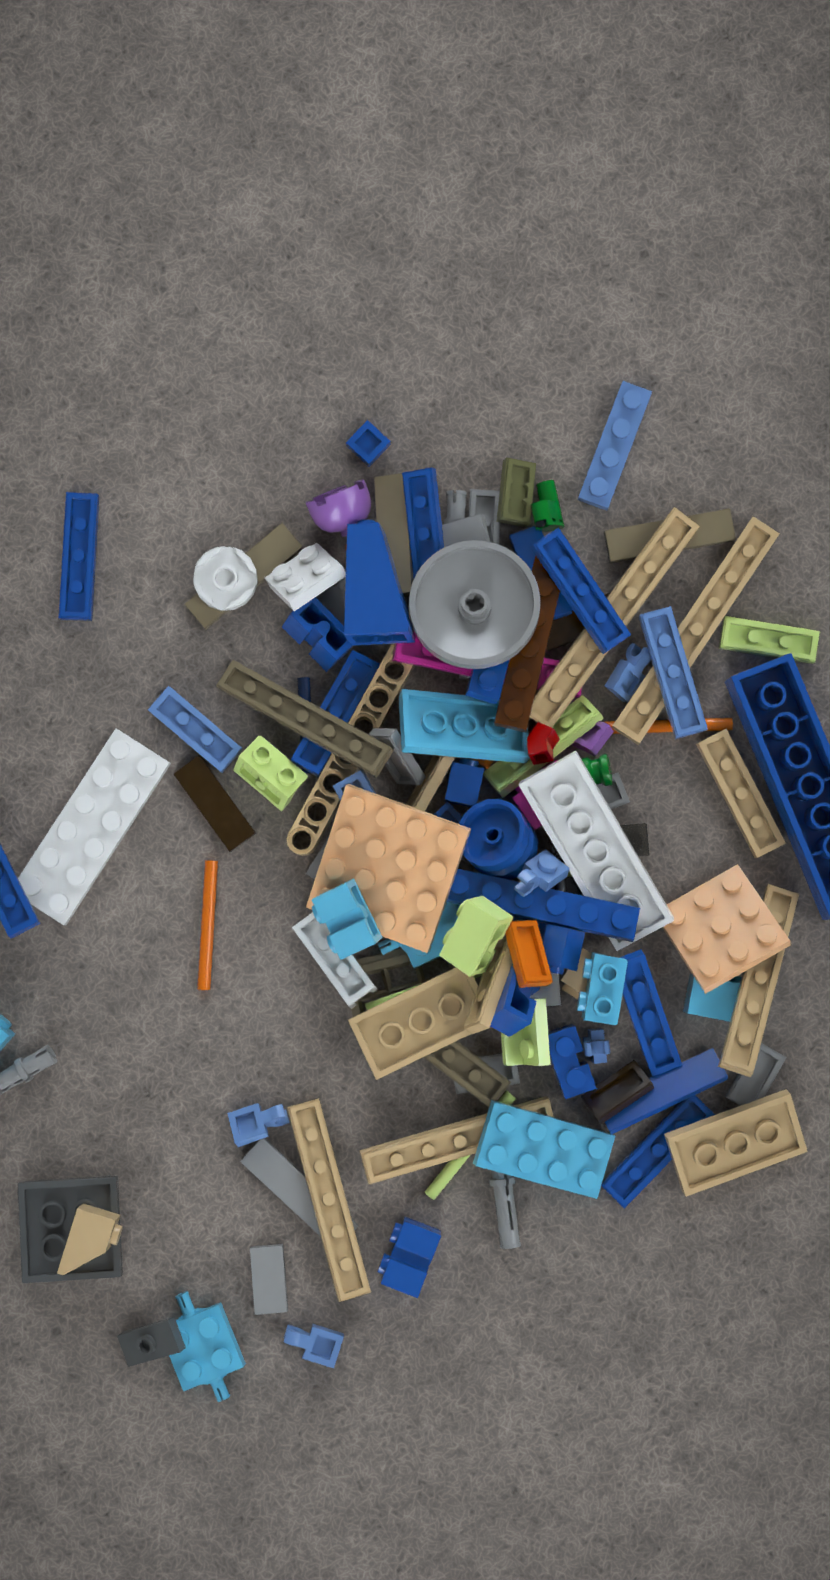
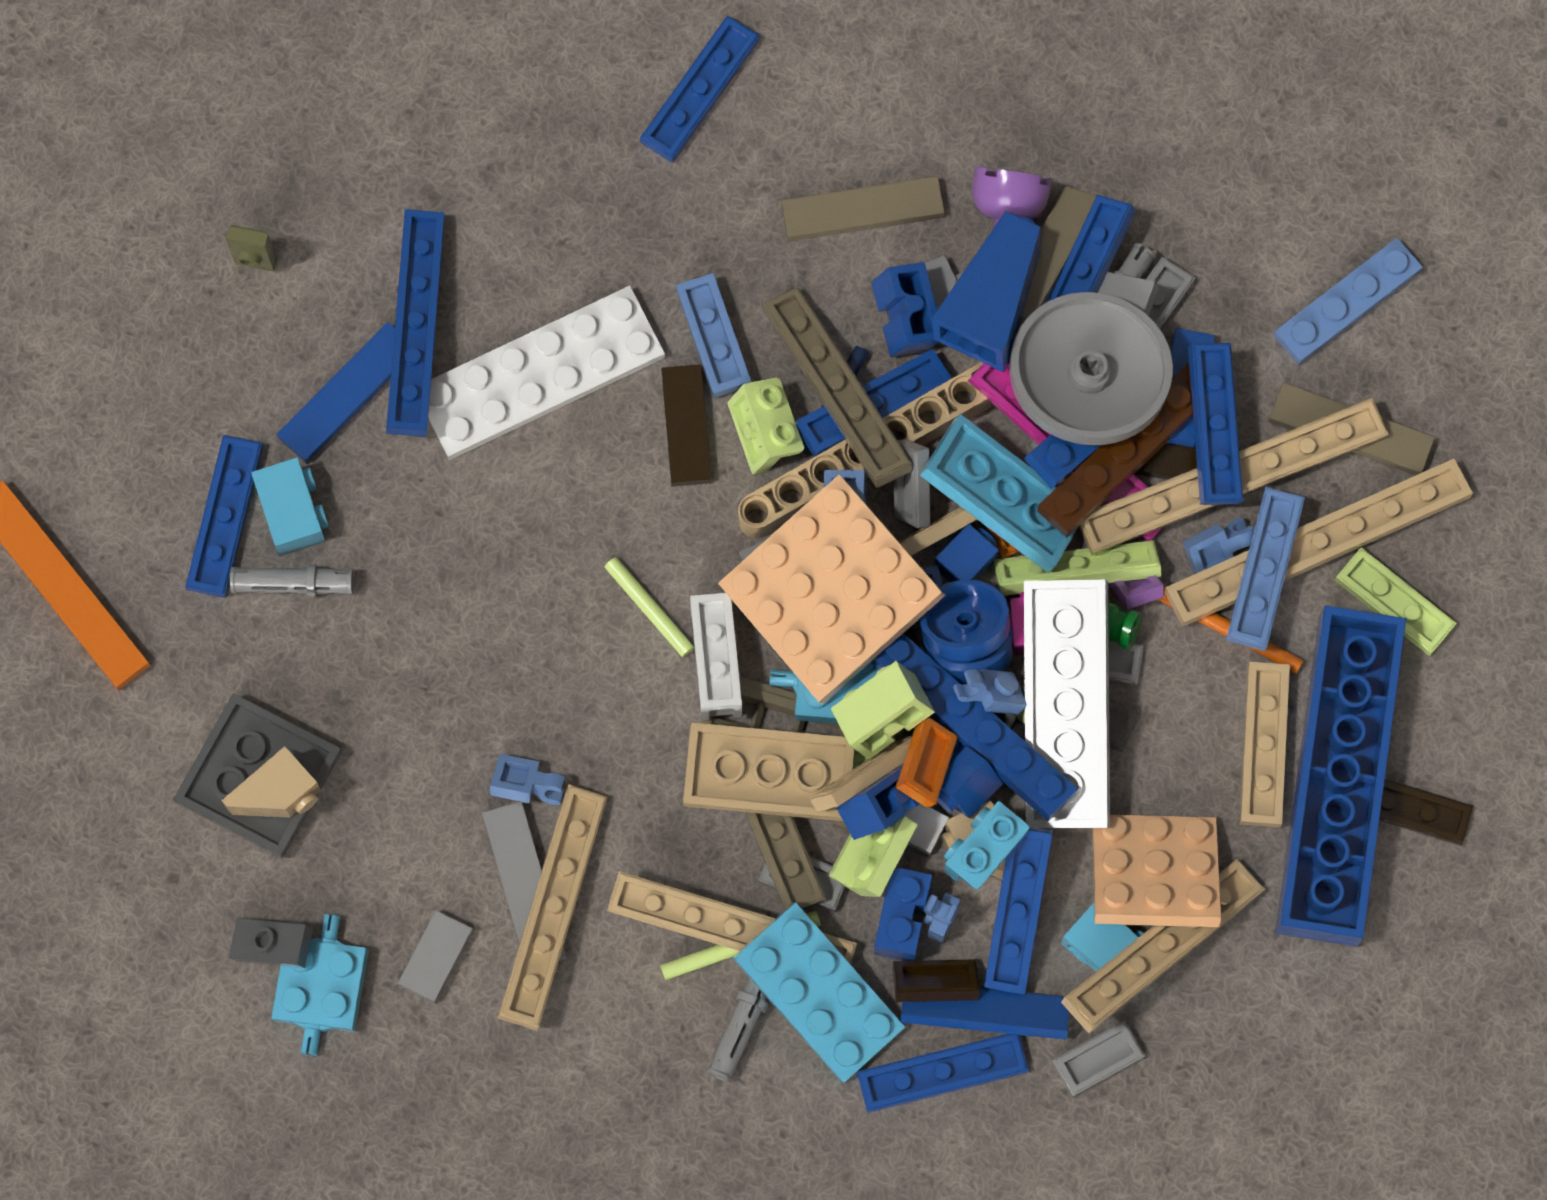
camera: 30 degrees right, 10 degrees down
(207, 925) = (600, 547): orange bar -> none
(225, 578) = (841, 197): white tile -> none
(266, 947) = (649, 607): none -> yellowish green bar
(305, 576) = (928, 241): white plate -> none
(319, 1345) = (447, 1056): medium blue plate -> none
(347, 919) = (755, 612): medium azure brick -> none
(368, 443) = (1080, 147): blue plate -> none
(410, 1256) = (603, 1020): blue brick -> none
(516, 492) = (1210, 287): olive plate -> none
(541, 743) = (1076, 559): red piece -> none
(547, 510) = (1233, 323): green piece -> none
(736, 1142) = (1033, 1110): tan plate -> none

